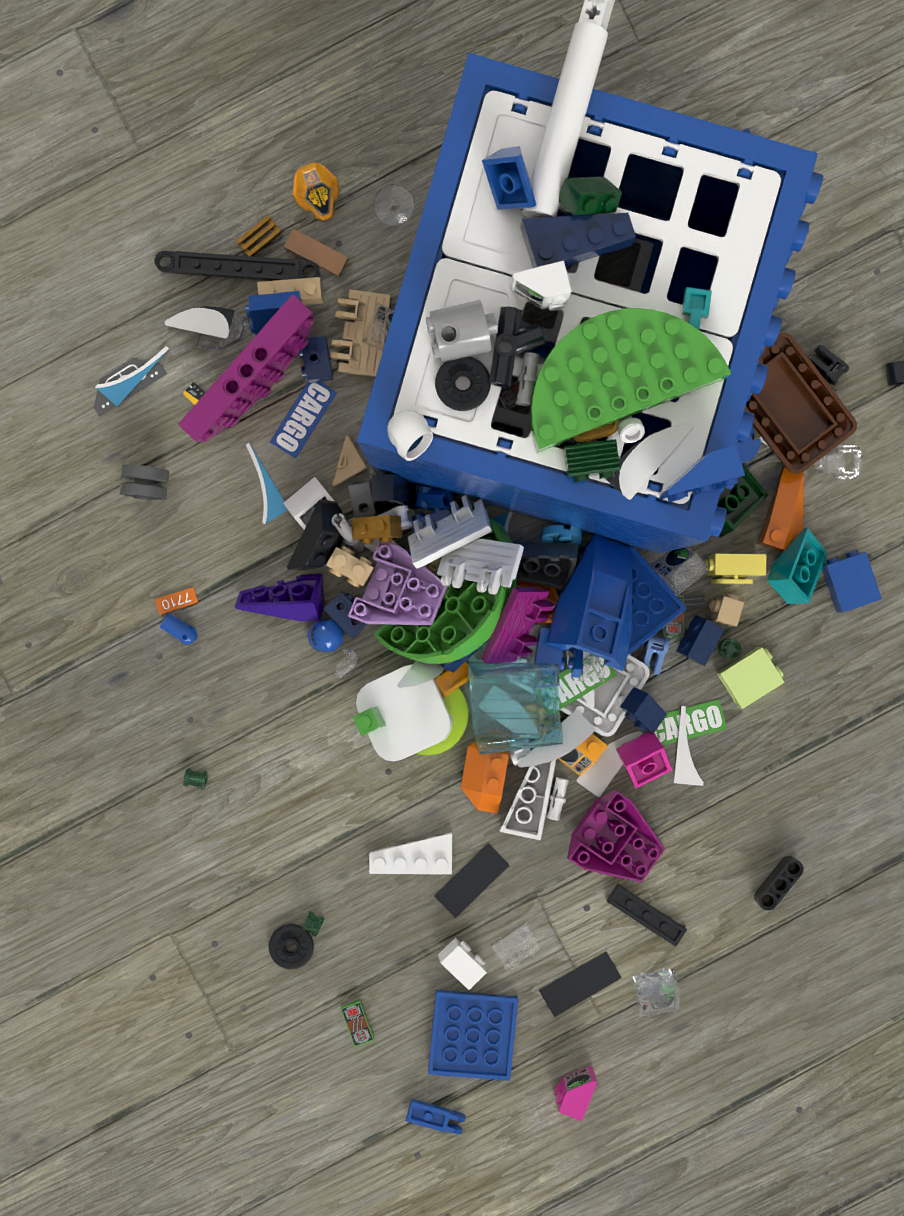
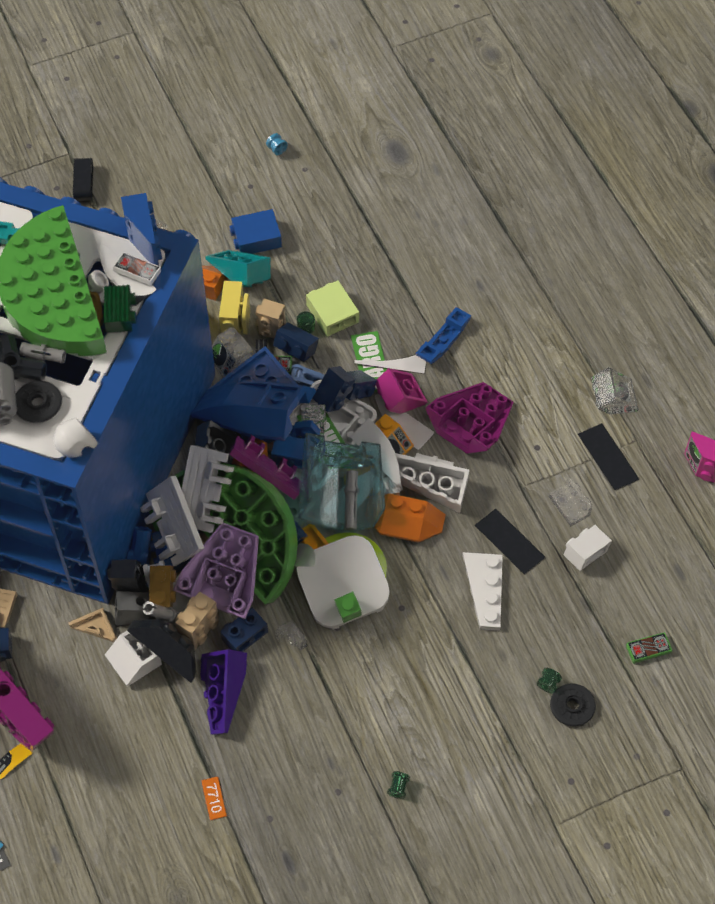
camera: 90 degrees left, 30 degrees down
(144, 482) = (86, 811): dark grey wheel -> none
(179, 629) = (242, 791): blue piece -> none
(272, 499) = (124, 698): dark azure sticker -> none
(303, 418) = (45, 665): sticker -> none
(325, 635) = (262, 649): blue helmet -> none
(472, 1035) = (657, 546): blue plate -> none
(497, 715) = (351, 491): none -> light grey pin
(558, 534) = (187, 438): dark azure plate -> none
(626, 690) = (334, 388): none -> dark blue brick
(646, 915) = (543, 399): black tile -> none
(653, 473) = (136, 269): none -> tile
(719, 804) = (445, 337): none -> blue slope
(777, 893) = (515, 296): black beam -> none

